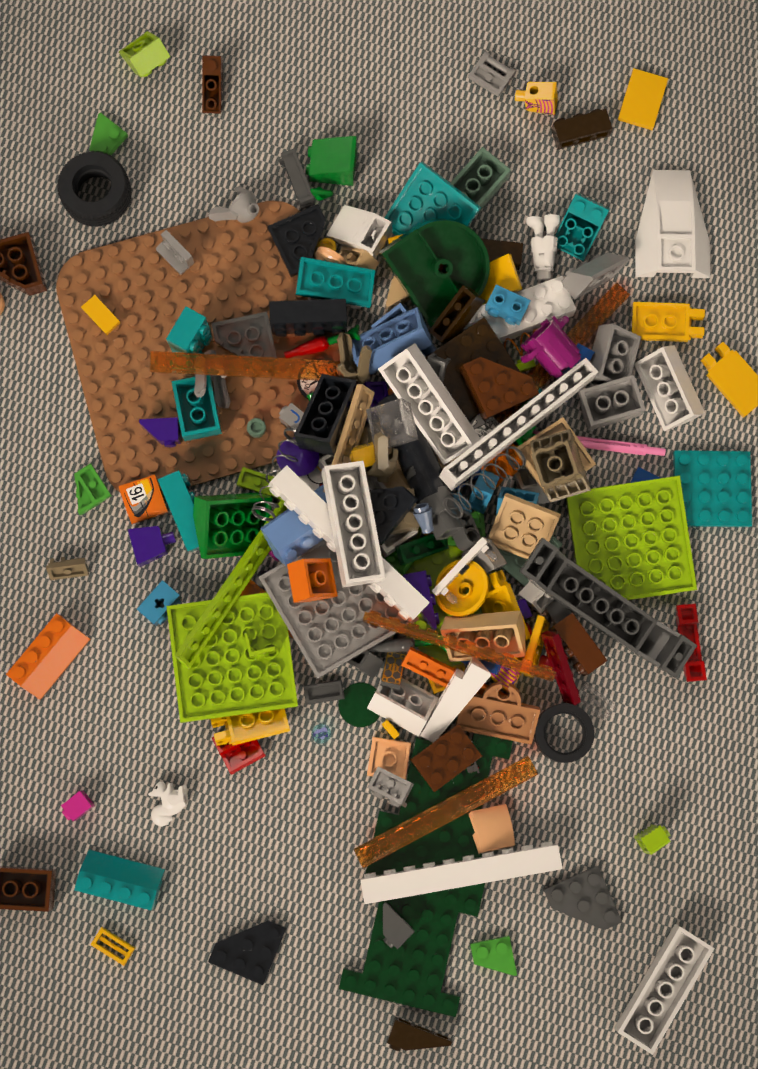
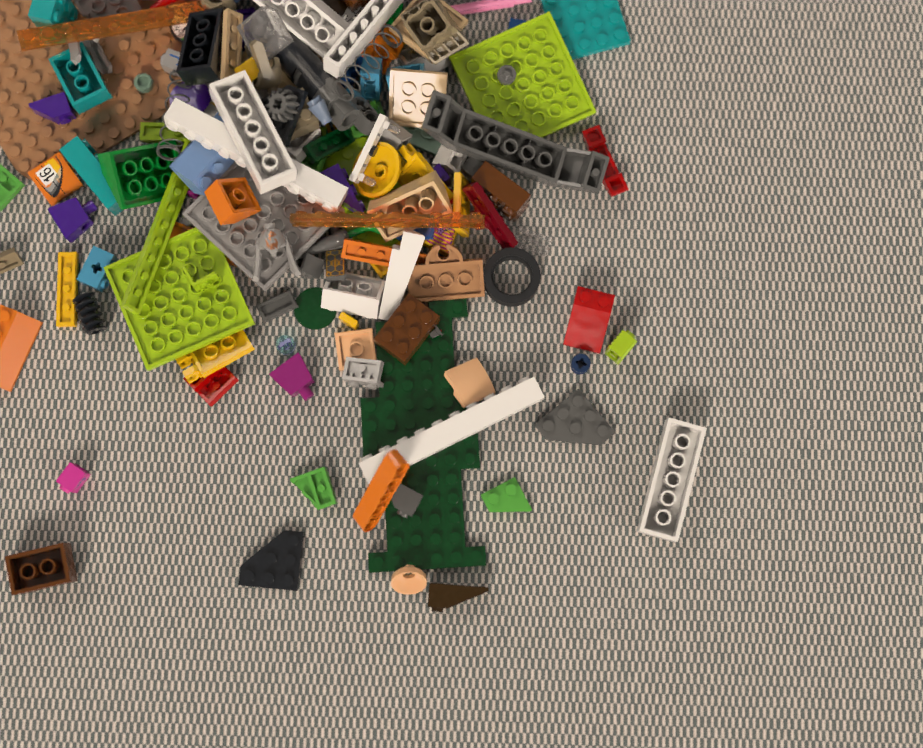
camera: 15 degrees left, 0 degrees up
(120, 880) = (132, 534): teal slope -> none
(122, 942) = (160, 602): yellow tile -> none
(123, 613) = (67, 289): none -> yellow tile
(138, 646) = (88, 313): none -> black piece
(172, 802) = (162, 449): white animal -> none
(311, 887) = (316, 487): none -> bright green wing
(321, 770) = (294, 377): none -> magenta torso
(340, 635) = (272, 240): none -> light grey piece
(374, 915) = (380, 490): none -> orange beam
(376, 1009) = (409, 583): none -> light nougat piece
(395, 504) = (282, 105): none -> dark grey gear
(445, 811) = (421, 379): clear orange plate -> none
(603, 840) = (579, 368): none -> dark blue wheel
(618, 528) = (506, 75): none -> dark grey tile
(628, 799) = (588, 319): none -> red slope

